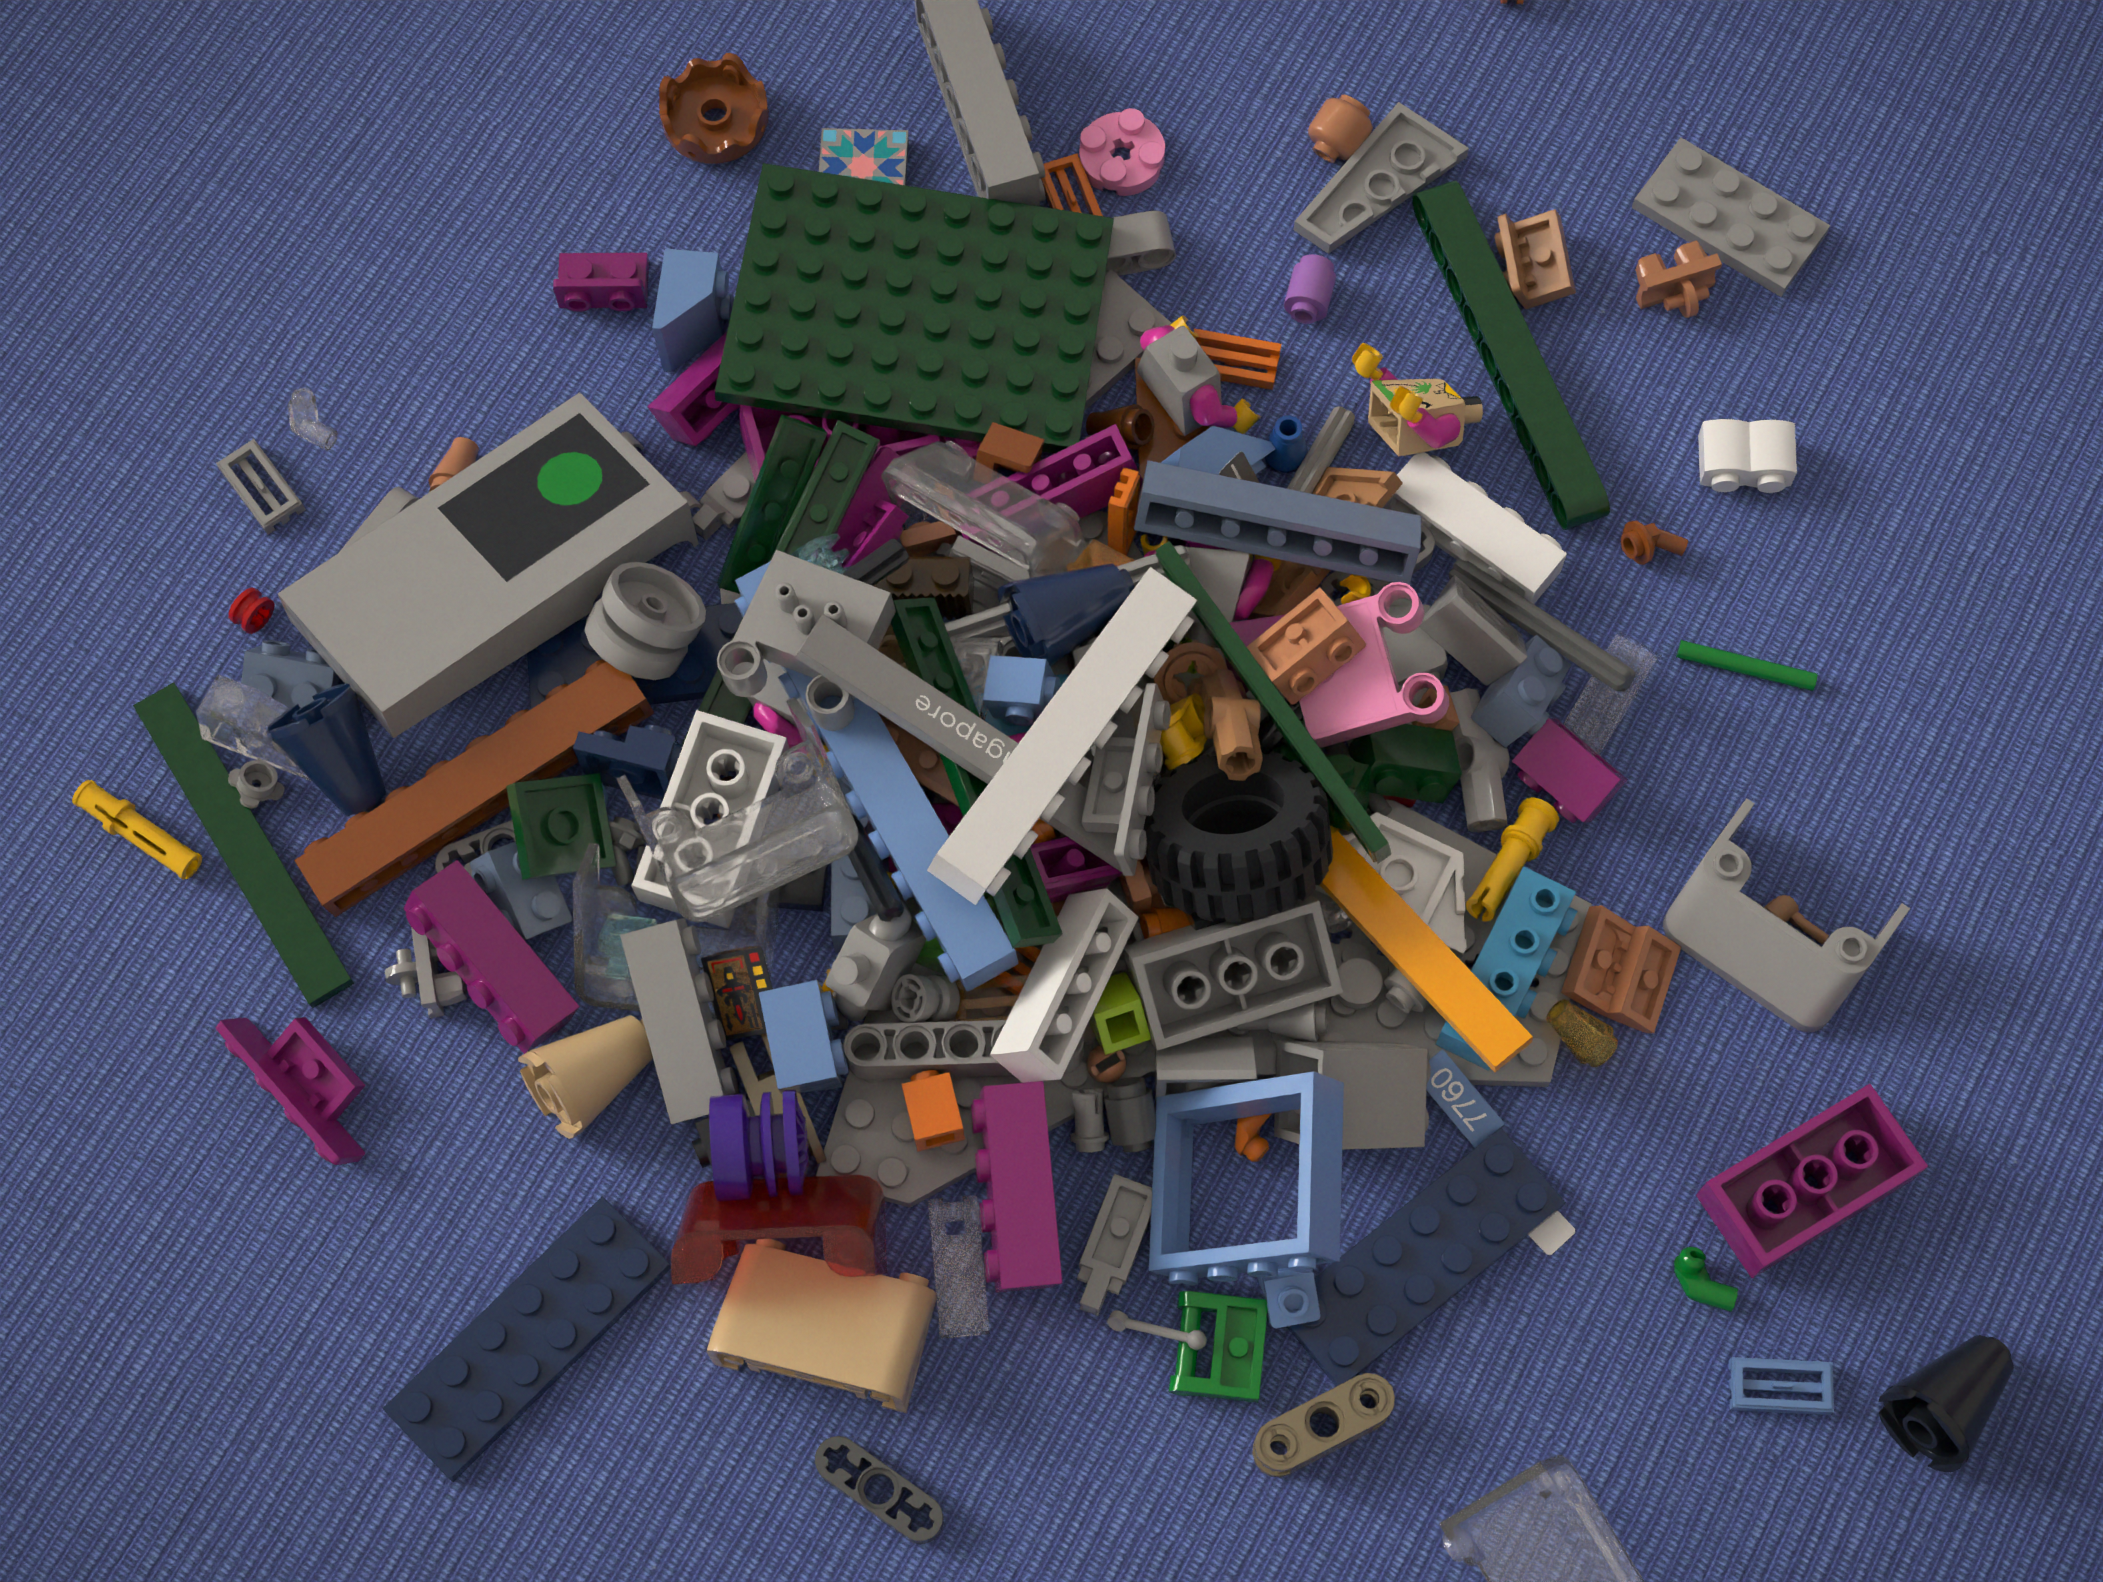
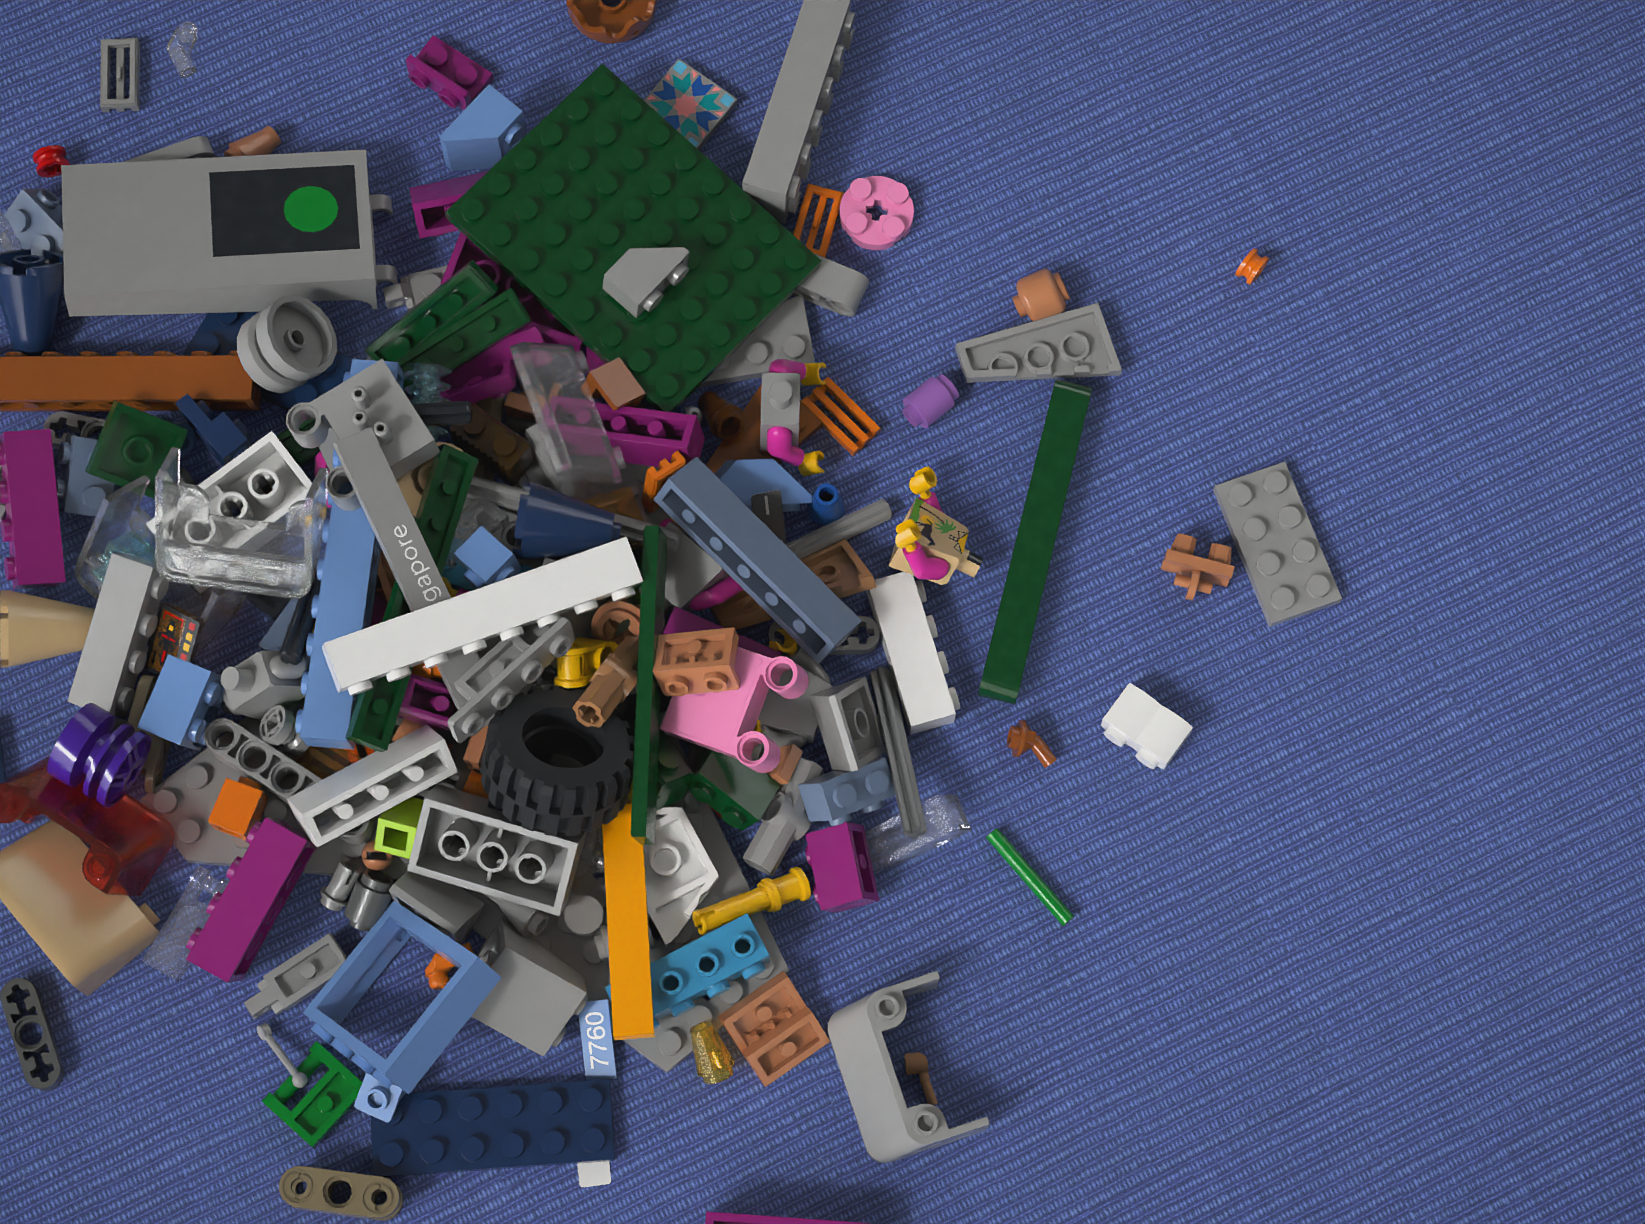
camera: 30 degrees right, 5 degrees up
(960, 327) = (642, 276): none -> light grey slope
(1535, 258) = (1106, 482): medium nougat bracket -> none

